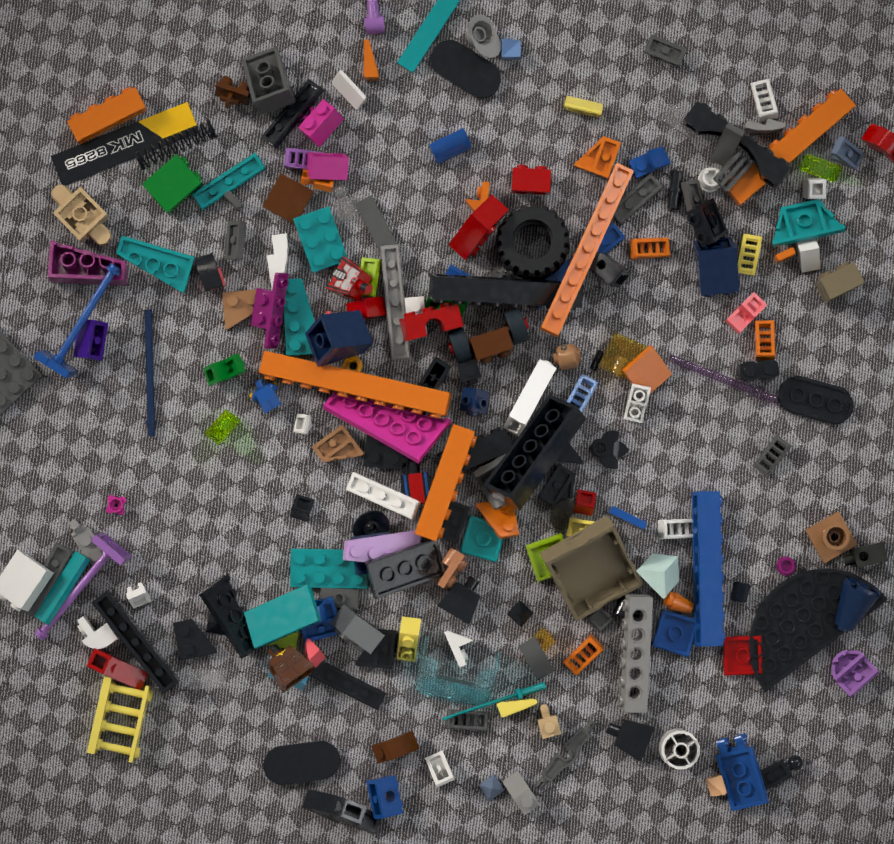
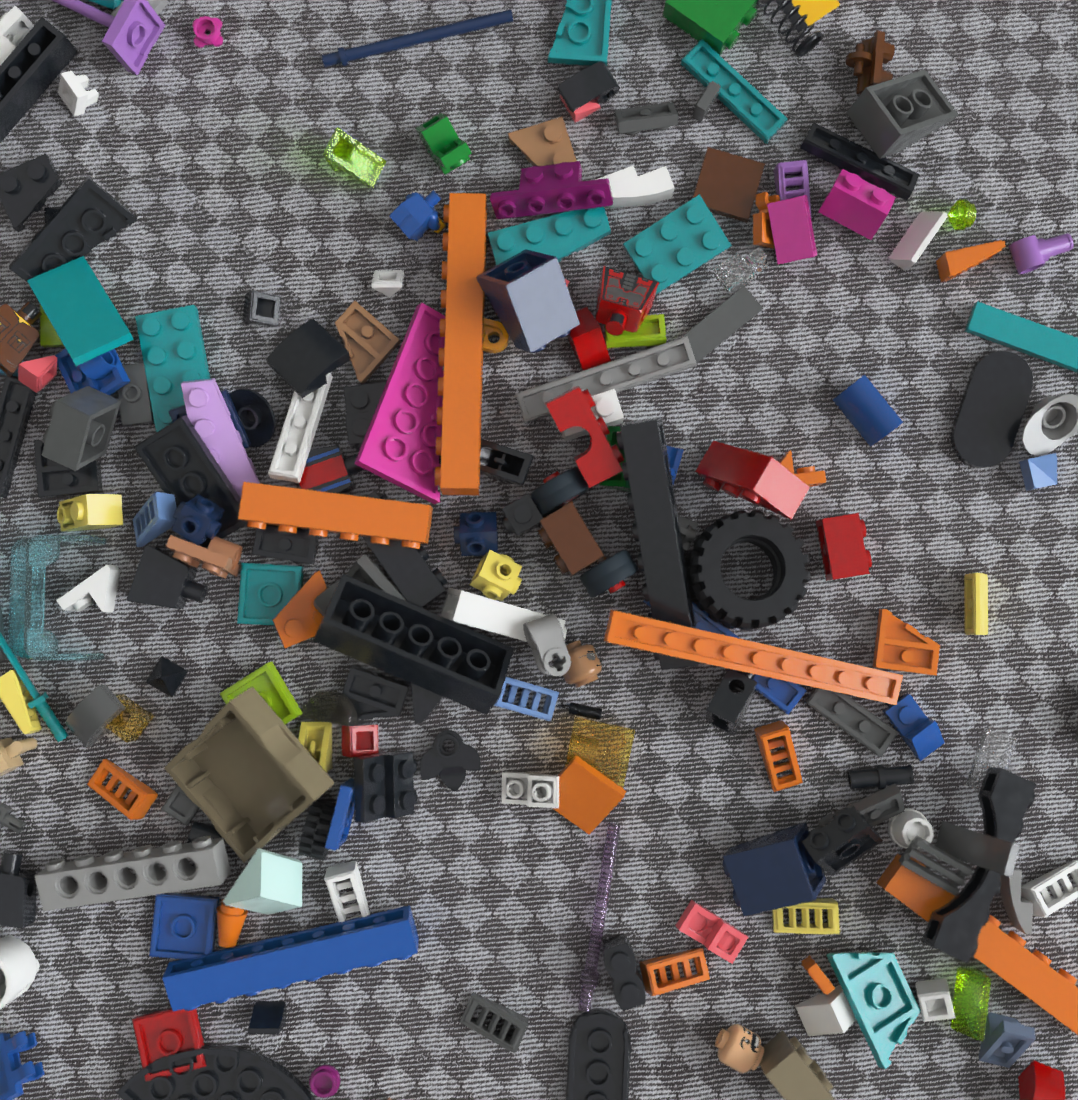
camera: 80 degrees right, 0 degrees up
(340, 59) = (962, 214): none -> clear neon green plate
(341, 483) = (307, 357): none -> black slope
(422, 587) = (154, 518): none -> medium blue slope
(430, 568) = (197, 520): none -> dark blue brick
(503, 395) = (497, 576): none -> light yellow brick
(550, 372) = (545, 641): none -> light grey piece
(615, 489) = (384, 785): none -> black plate
(634, 535) = (316, 830): none -> black tyre
(817, 311) = (739, 1048): none -> light nougat head

